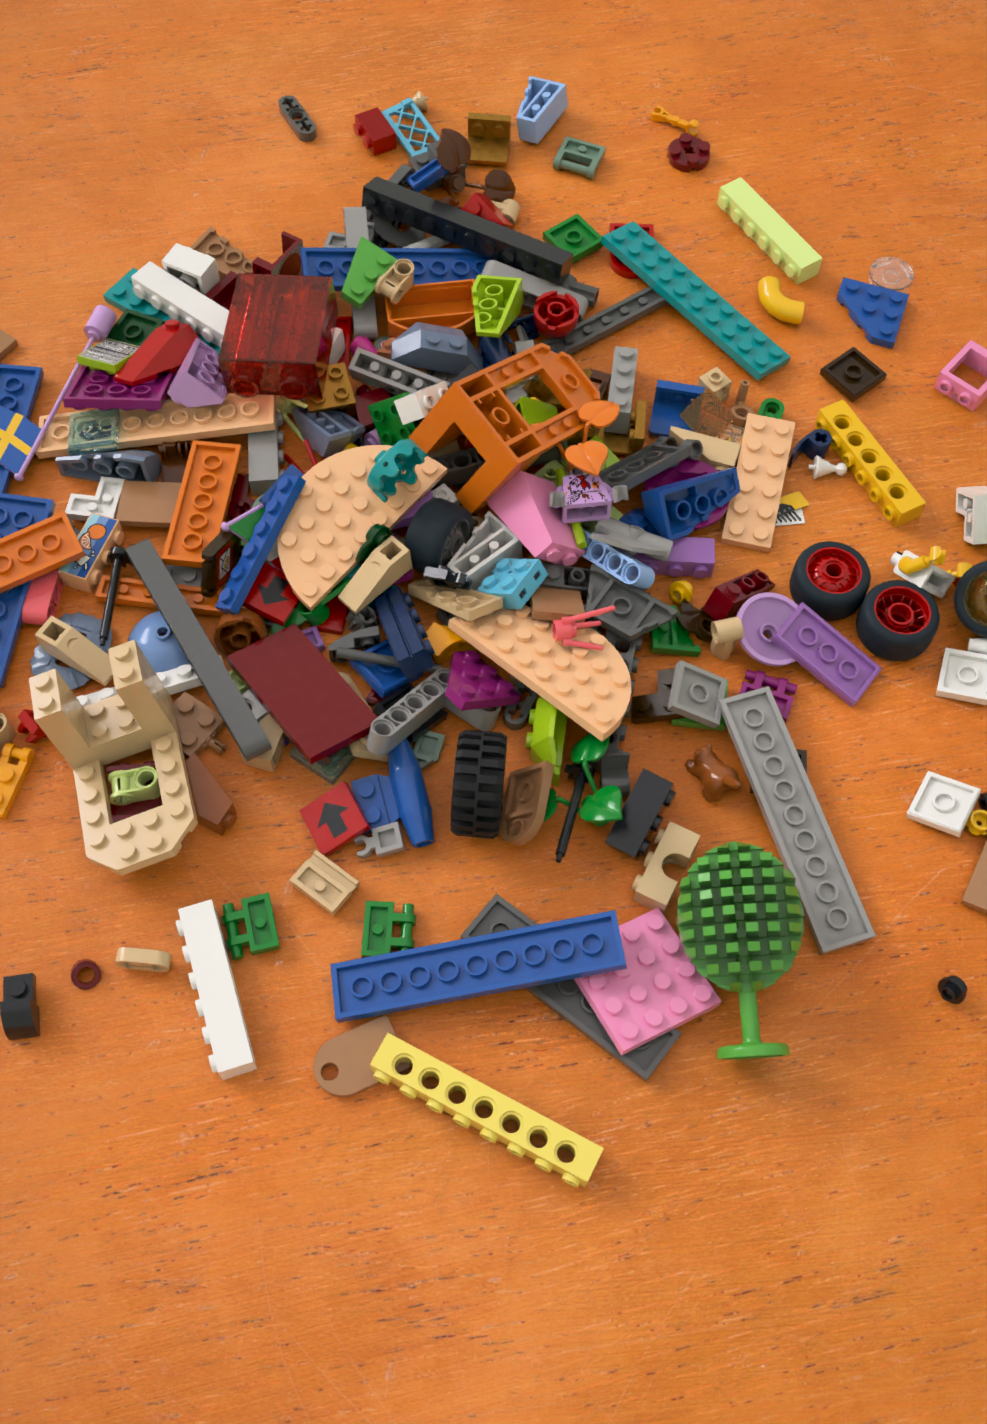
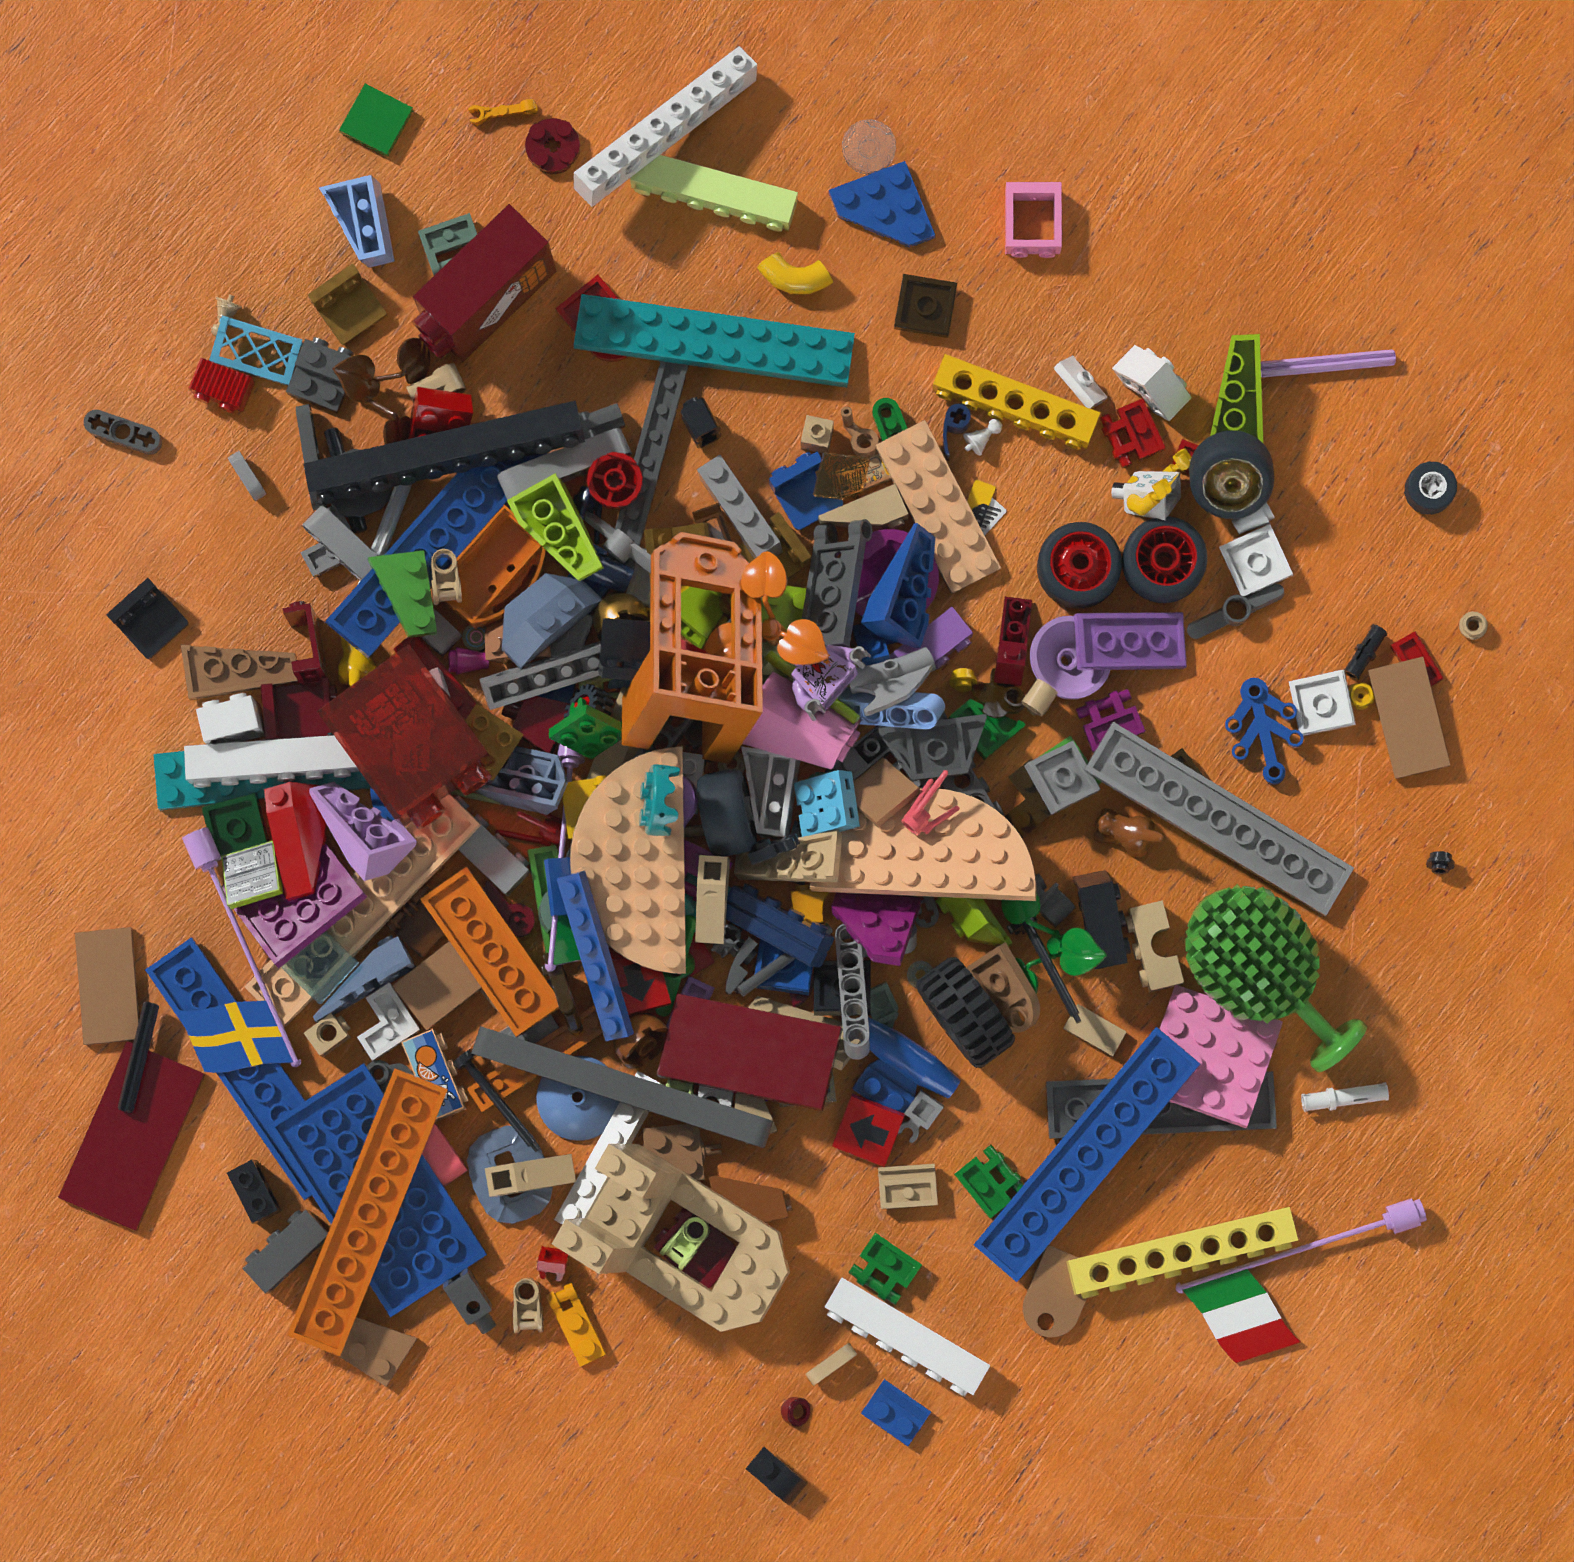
camera: 35 degrees left, 20 degrees up
(56, 479) = (315, 1034): none -> tan brick
(153, 1040) = (896, 1412): none -> blue plate
(207, 199) = (148, 619): none -> black bracket
(341, 179) = (247, 475): none -> light grey beam
(375, 536) = (688, 868): dark green plate -> none
(420, 403) = (611, 704): white brick -> none
(426, 176) = (332, 406): blue tile -> none
(492, 1204) = (1241, 1309): none -> flag
(567, 890) = (1095, 1031): none -> tan tile
(574, 236) = (537, 359): green plate -> none
(576, 163) = (483, 285): none -> dark red brick
(596, 81) = (376, 120): none -> green tile
(642, 326) = (700, 422): none -> black brick
(725, 1105) = (1342, 1097): none -> white pin
(768, 171) = (665, 126): none -> white brick
(882, 784) = (1263, 725): none -> blue plant
(910, 694) = (1220, 617): none -> dark grey piece
(926, 482) = (1080, 382): none -> white plate
(946, 532) = (1140, 429): none -> red plate

